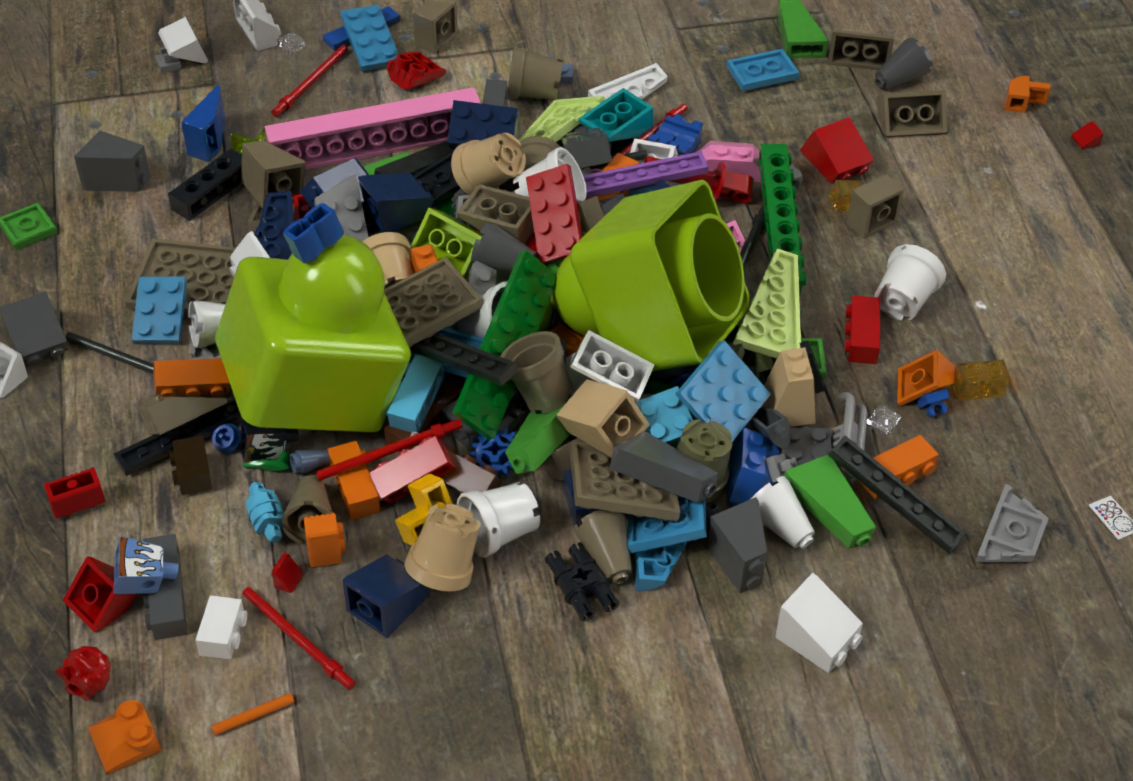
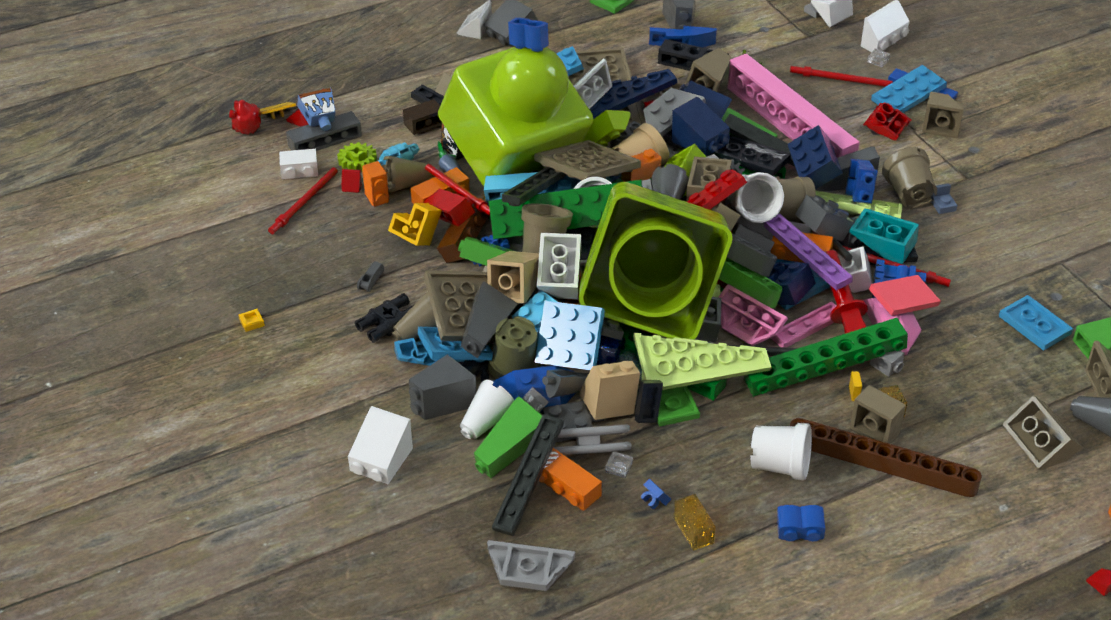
camera: 75 degrees right, 5 degrees down
(71, 633) = (280, 107): none -> yellow piece
(74, 493) = (381, 76): red brick -> none
(124, 737) = (212, 151): orange slope -> none
(164, 179) = (689, 35): none -> blue slope
(205, 127) = (749, 35): blue slope -> none
(239, 557) = (356, 156): none -> lime gear
(252, 714) = (241, 197): orange bar -> none
(383, 594) = (343, 222): dark blue slope -> none
(444, 549) = (378, 234): tan piece -> none
(487, 162) = (756, 156): tan piece -> none
(492, 586) = (369, 279): none -> dark grey bar
(503, 515) = (419, 252): white piece -> none
(527, 737) = (251, 320): none -> yellow tile
(534, 106) = (864, 183): none -> blue hips
(639, 83) = (947, 244): white wing -> none
(718, 133) = (904, 295): none -> coral tile
(817, 213) = (855, 384): none -> yellow tile
(837, 151) = (944, 384): red slope -> none
(863, 329) = (720, 436): red brick -> none
(918, 221) = (893, 459): none -> reddish brown beam
(924, 377) = (679, 483): orange slope -> none
(993, 304) = (800, 522): none -> blue brick

